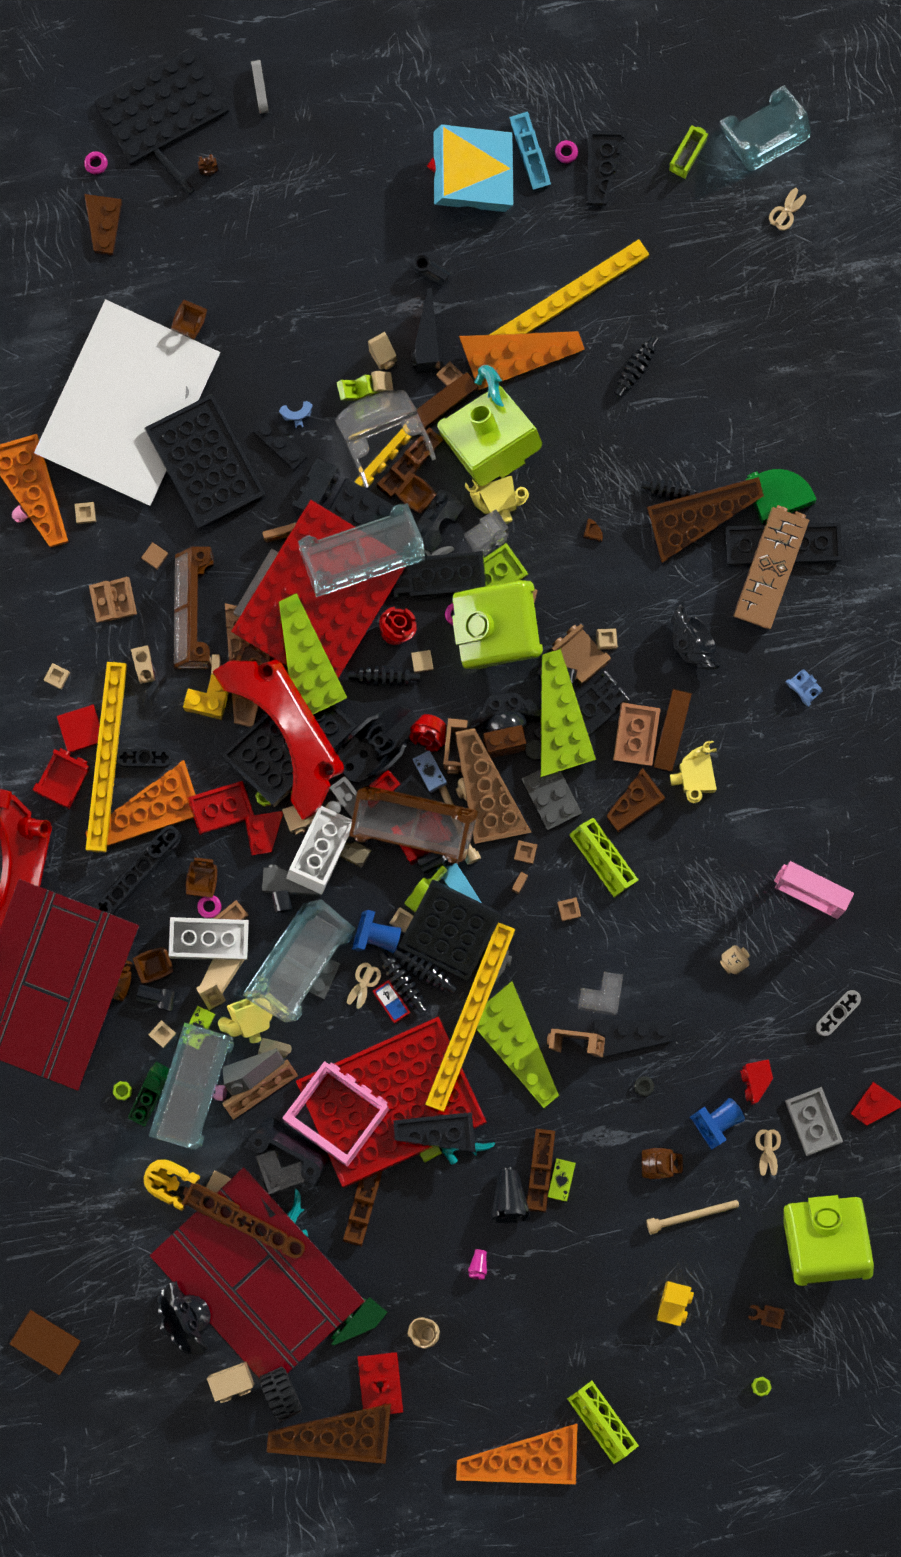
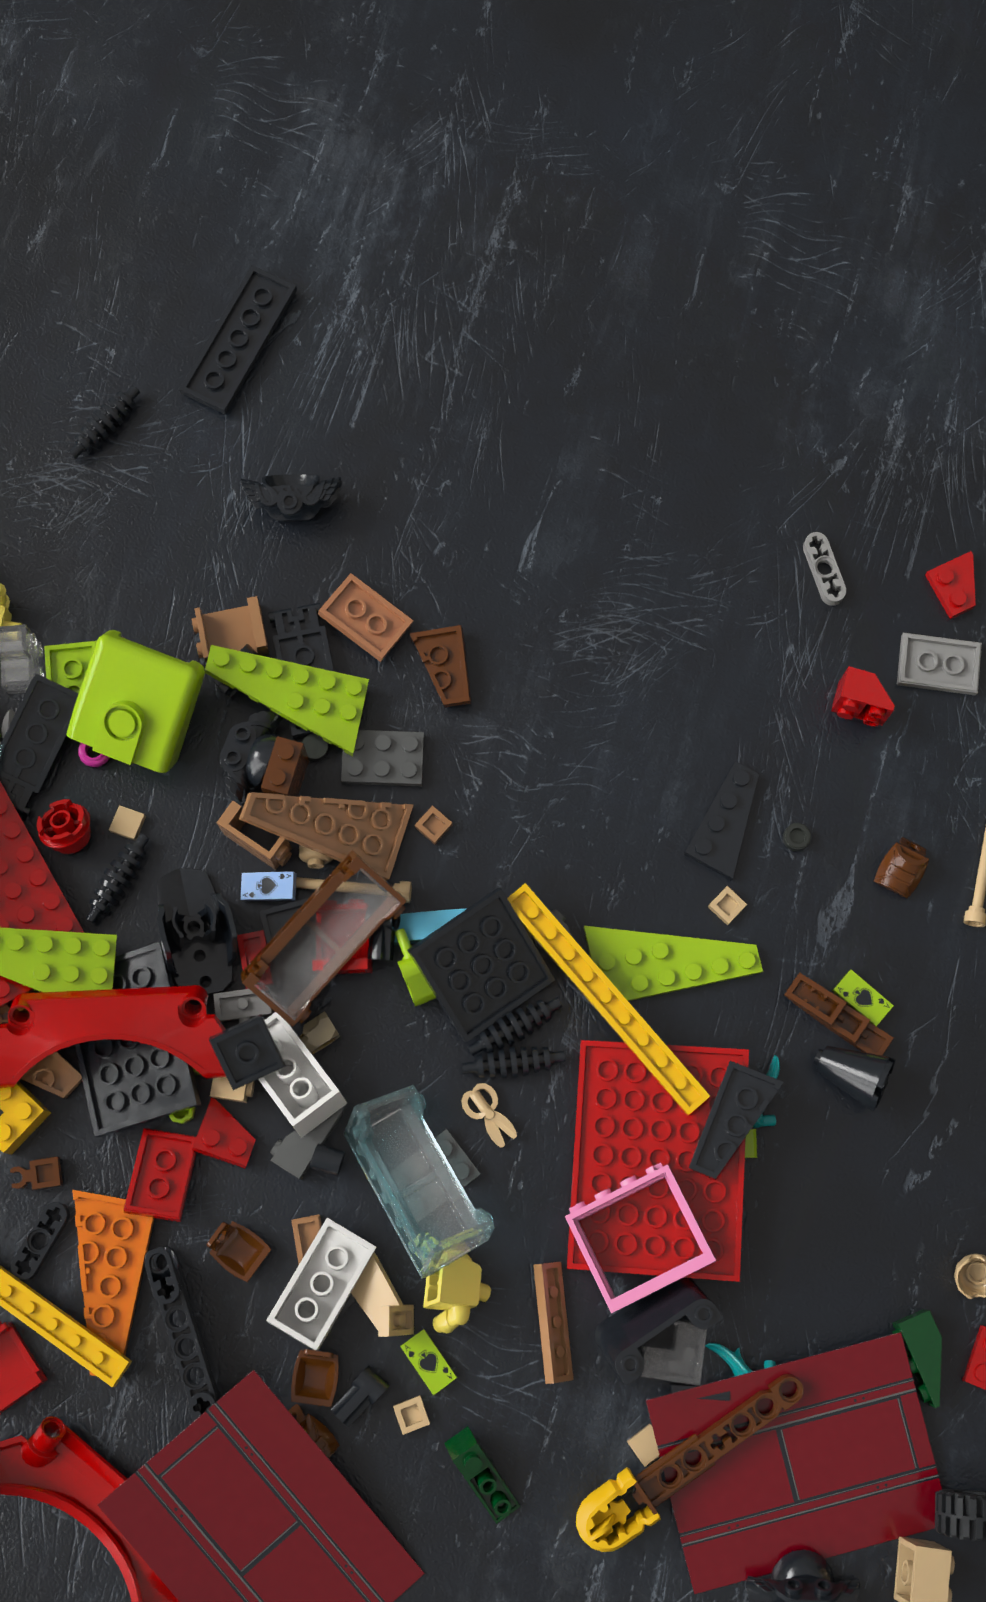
camera: 65 degrees left, 5 degrees down
(122, 1090) = (458, 1511): lime tile -> none
(183, 736) = (42, 1174): none -> reddish brown plate
(190, 1086) = (503, 1415): windscreen -> none
(215, 912) = (292, 1260): dark pink piece -> none
(221, 1093) = (530, 1378): bright pink hinge -> none
(249, 1072) = (525, 1324): dark grey slope -> none
(268, 1044) = (511, 1276): dark tan rock -> none
(318, 817) = (247, 1052): none -> black tile
(362, 1209) = (778, 1273): reddish brown slope -> none
(375, 934) = (436, 1061): blue plant -> none
(391, 1002) = (529, 1090): tile -> none
(401, 919) = (434, 1021): tan tile -> none
(429, 732) = (220, 859): red cone -> none
(478, 1266) = (921, 1159): dark pink cone -> none
(519, 883) = (468, 851): medium nougat tile -> none
(569, 909) = (532, 810): medium nougat tile -> none
(575, 1064) = (727, 905): none -> tan tile
(593, 531) = (93, 540): reddish brown tile -> none
(595, 1043) = (716, 858): medium nougat panel -> none
(601, 858) = (492, 738): lime fence -> none
(606, 639) = (230, 592): tan tile -> none
(606, 999) = (667, 822): clear brick -> none
(672, 730) = (384, 574): reddish brown slope -> none
(691, 517) = (144, 418): reddish brown wing -> none
(696, 773) = (453, 575): light yellow torso -> none
(714, 1124) = (889, 778): blue plant -> none
(735, 960) = (700, 648): tan head -> none
(768, 1155) = (954, 737): tan piece -> none
(771, 567) = (258, 361): medium nougat brick -> none
(782, 489) = (176, 313): green brick -> none
(805, 687) = (418, 403): medium blue piece -> none
(813, 889) = (671, 506): bright pink window -> none

